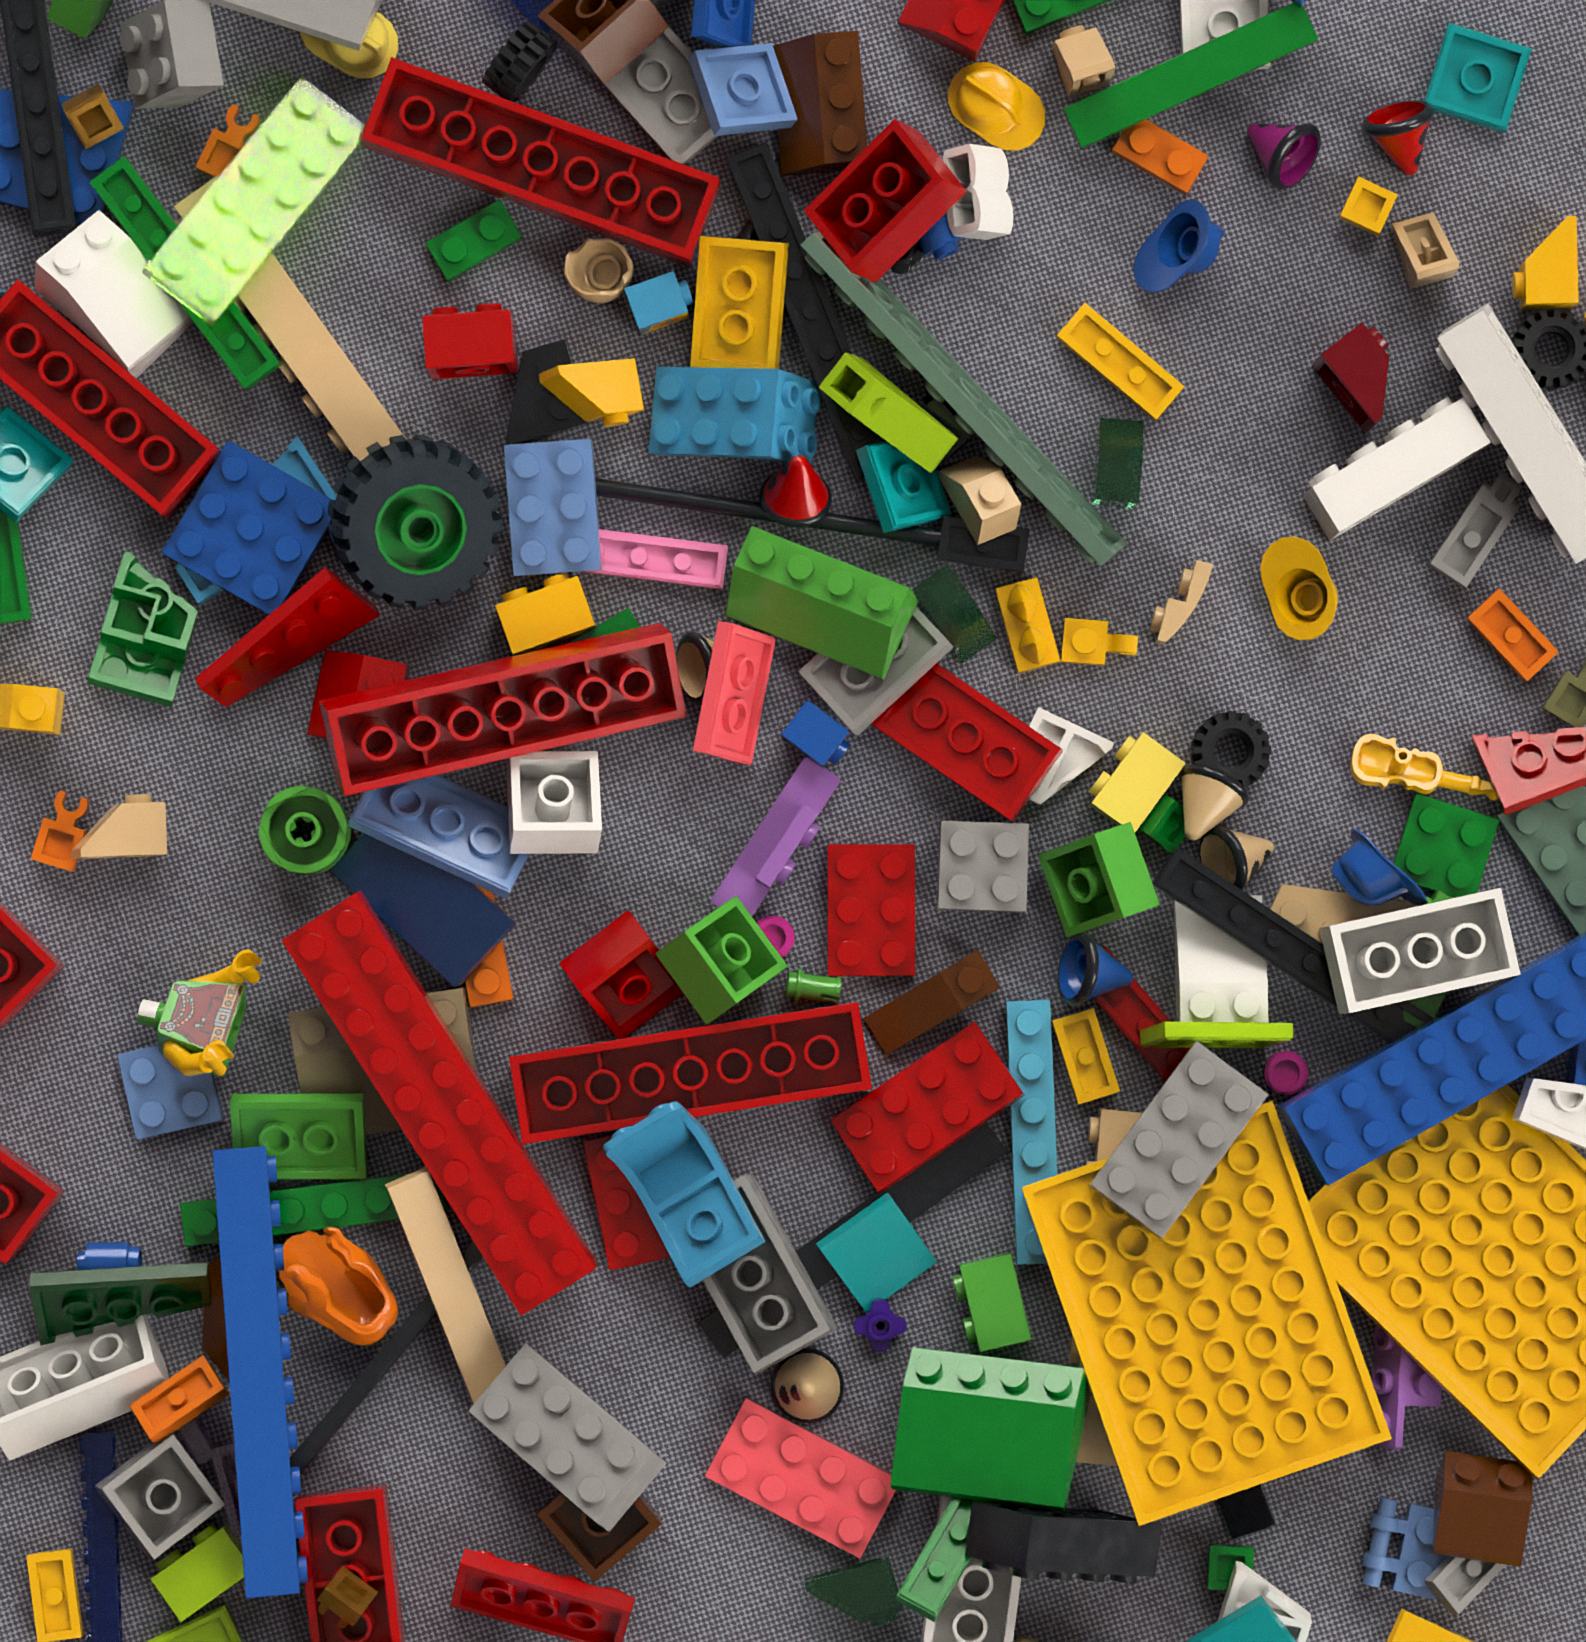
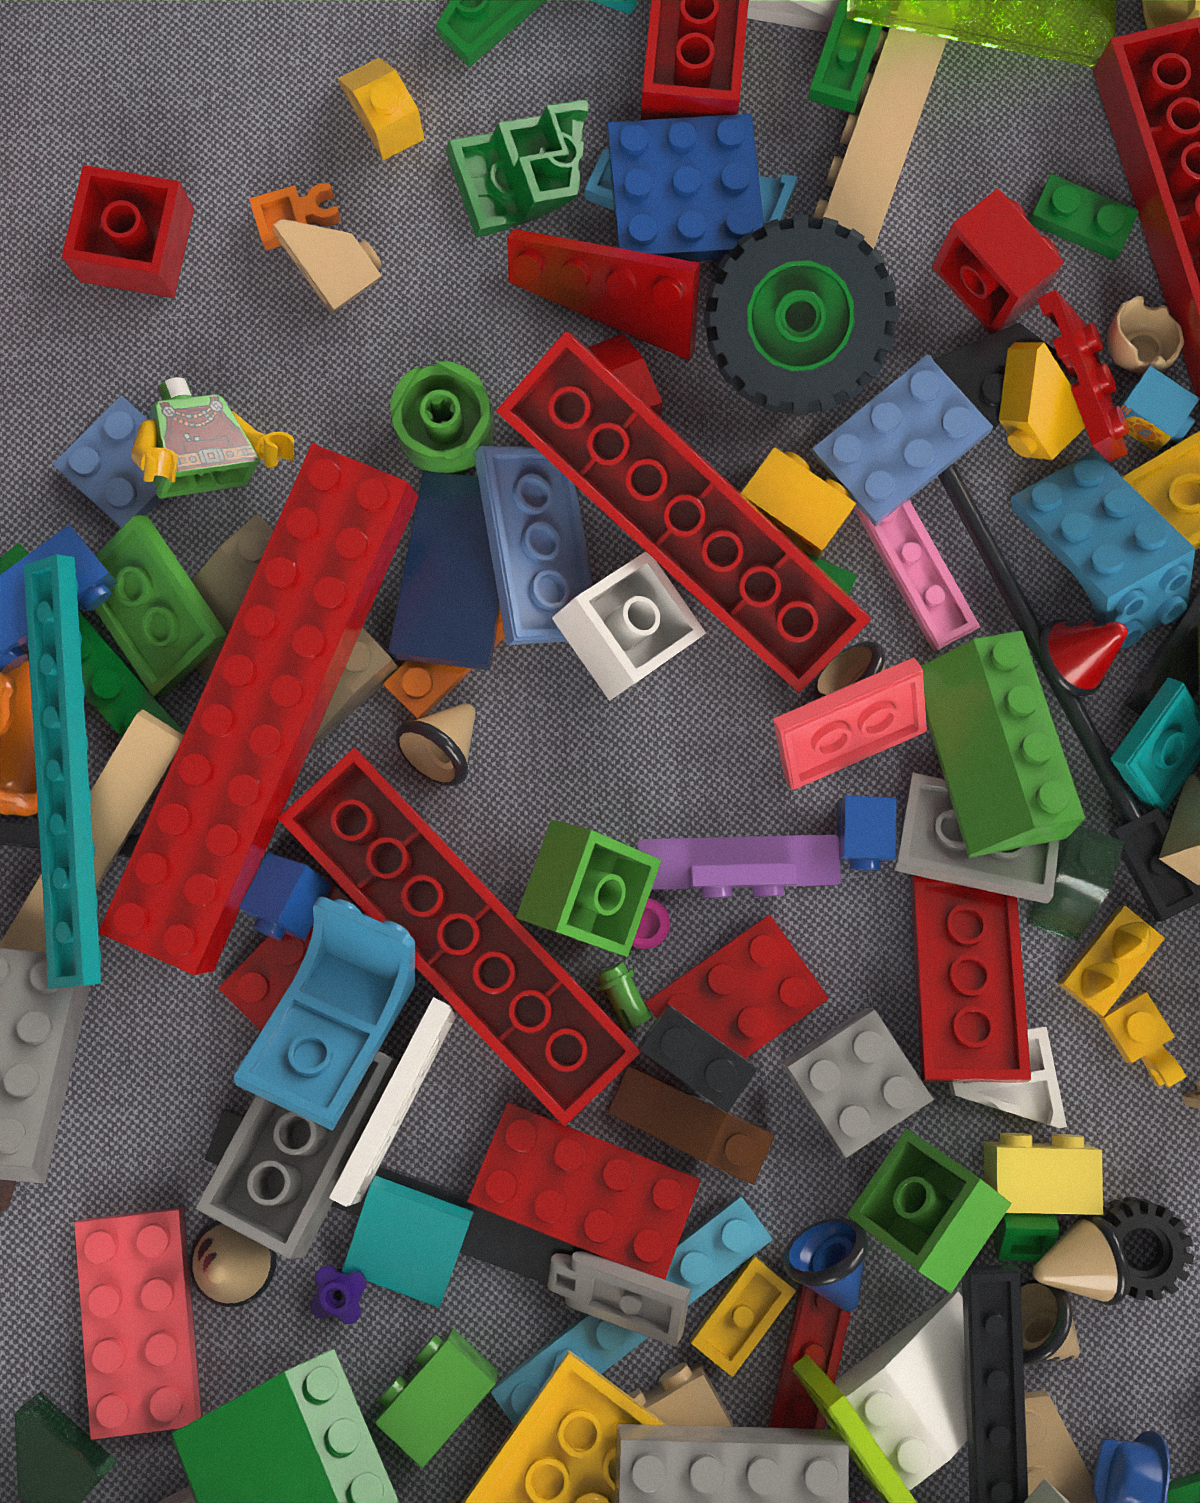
camera: 55 degrees right, 5 degrees down
(392, 1266) = (62, 773): none -> teal plate
(543, 995) = (439, 744): none -> tan hat
(580, 1177) = (283, 897): none -> blue brick
(586, 333) = (1079, 352): none -> red wing
(621, 975) = (508, 804): red slope -> none
(775, 1193) = (394, 1104): none -> white tile
(888, 966) = (697, 1057): none -> black brick
(1010, 1128) = (620, 1295): none -> light grey hinge

